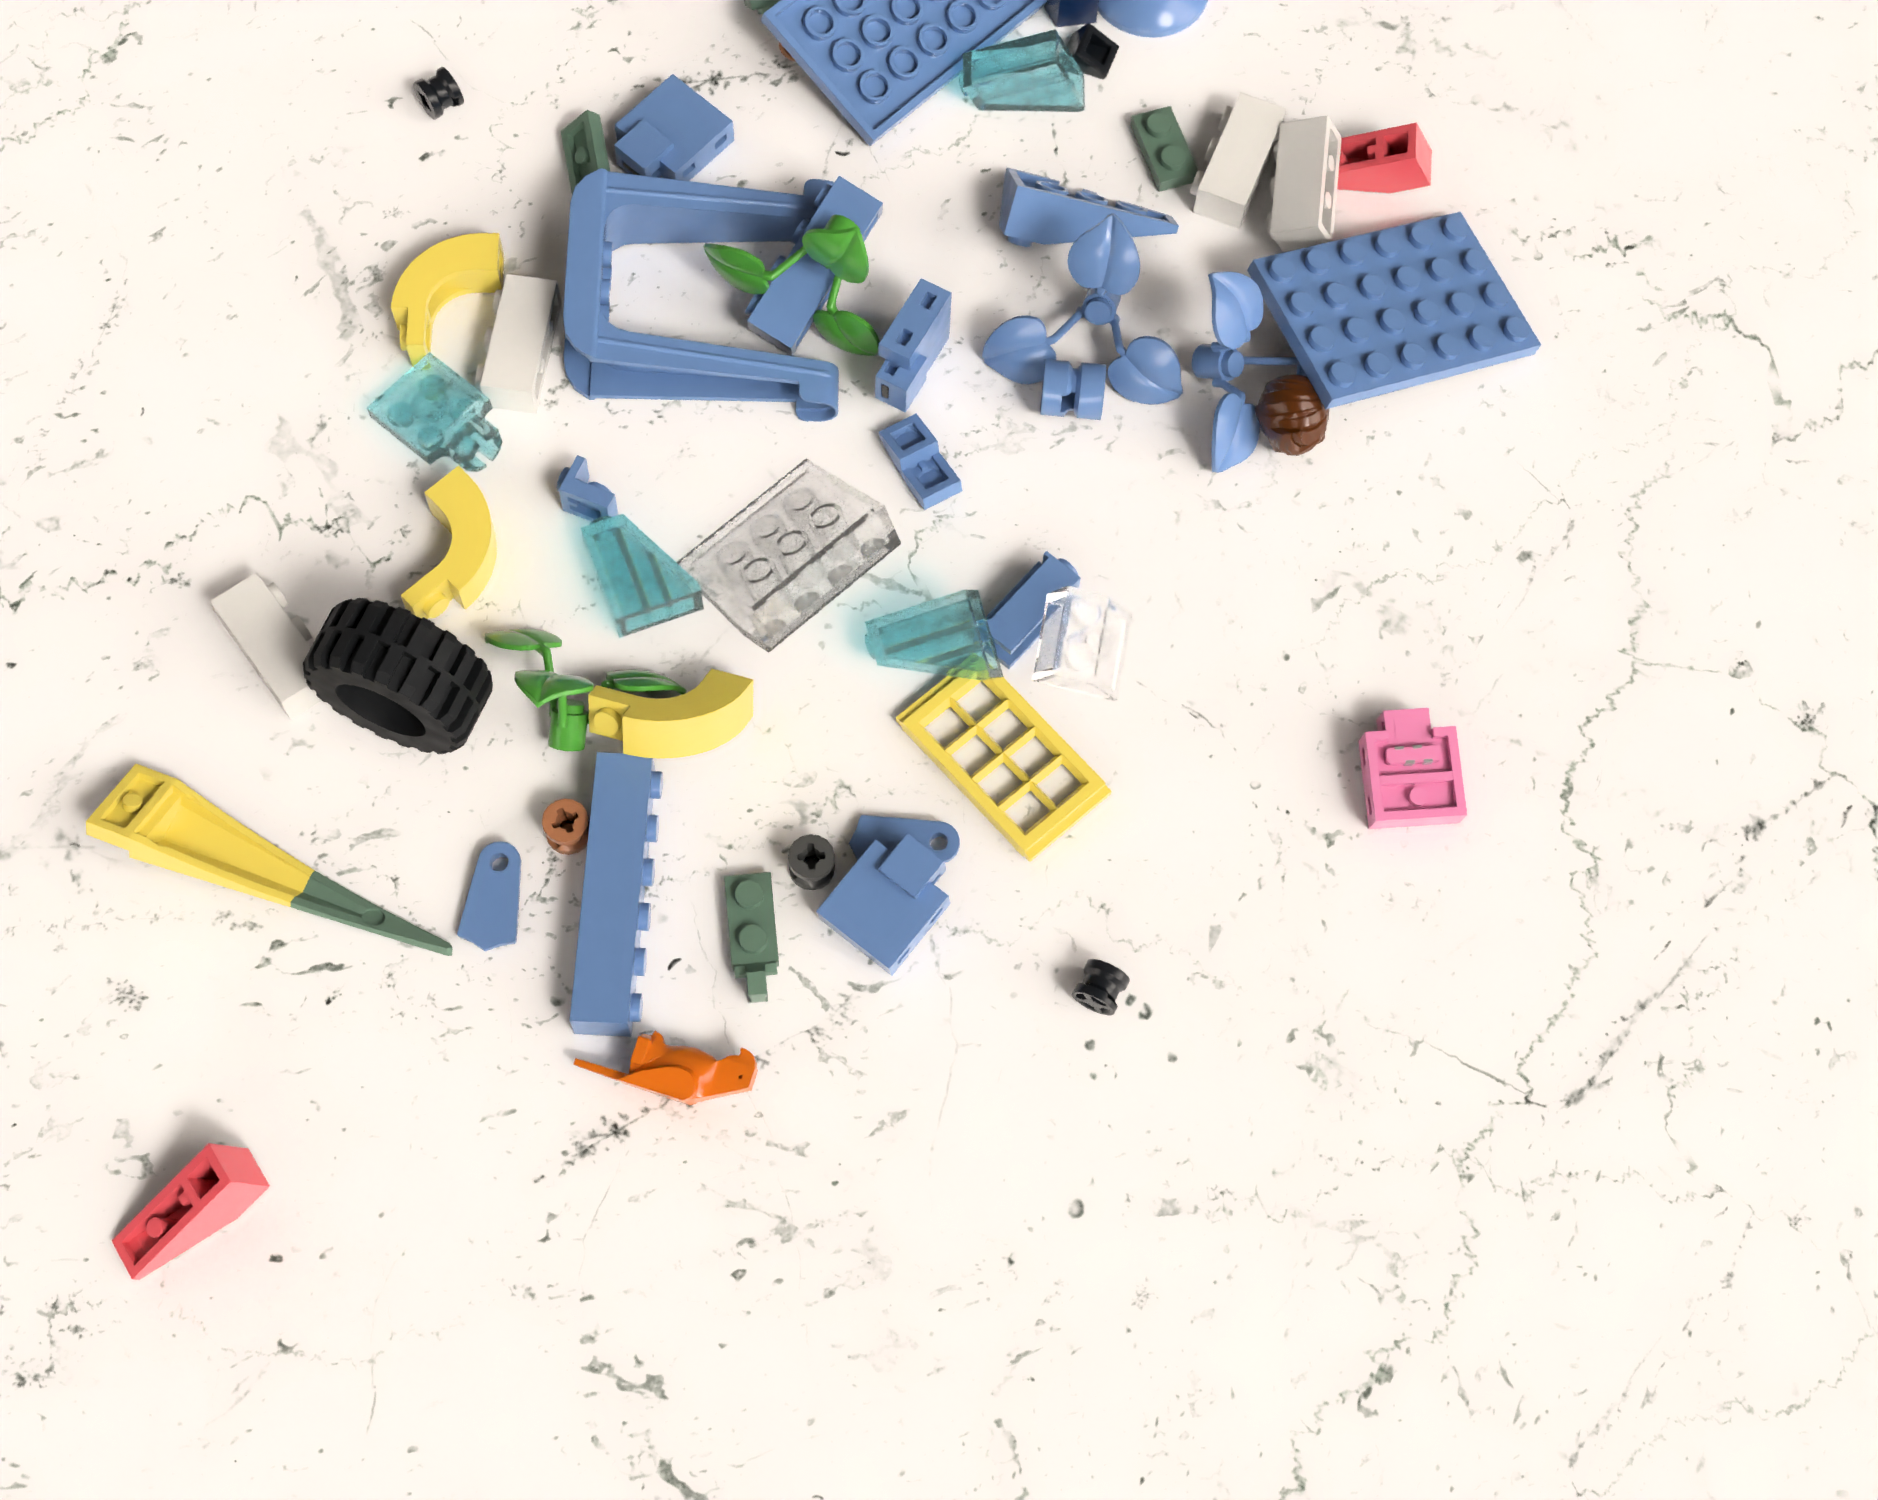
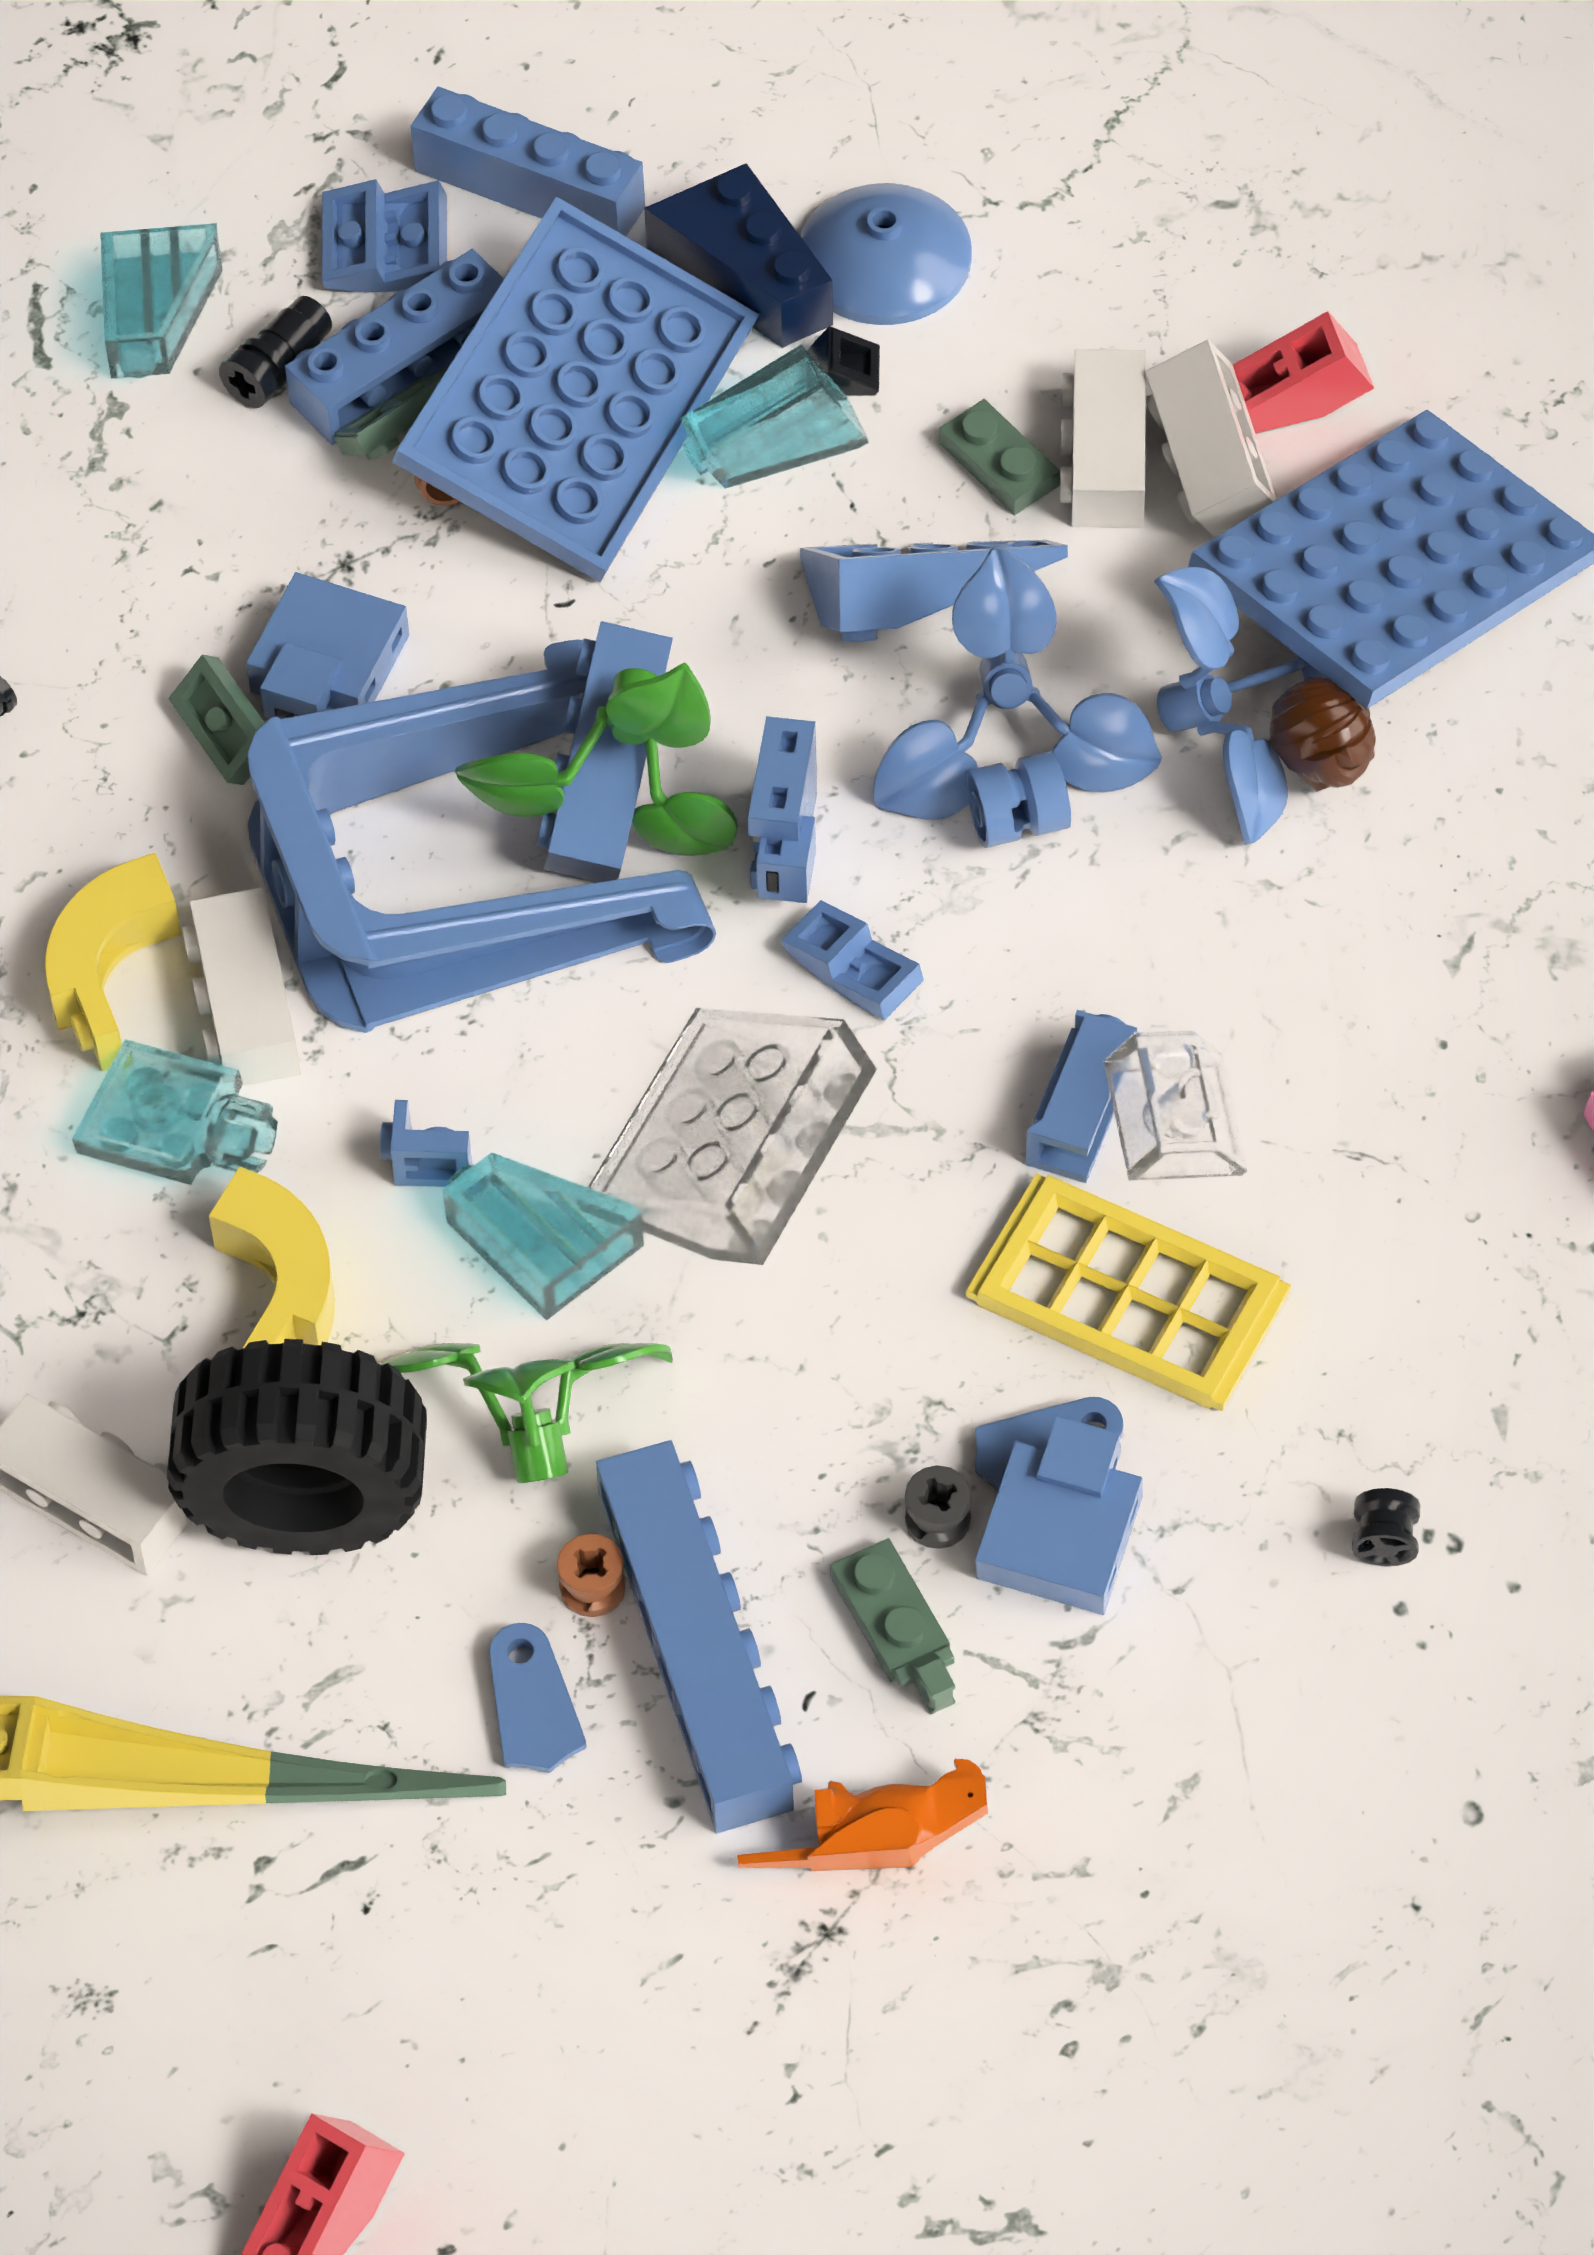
camera: 15 degrees left, 10 degrees down
(677, 724) = (681, 1393): light yellow arch -> none
(937, 638) = (981, 1166): clear light blue slope -> none

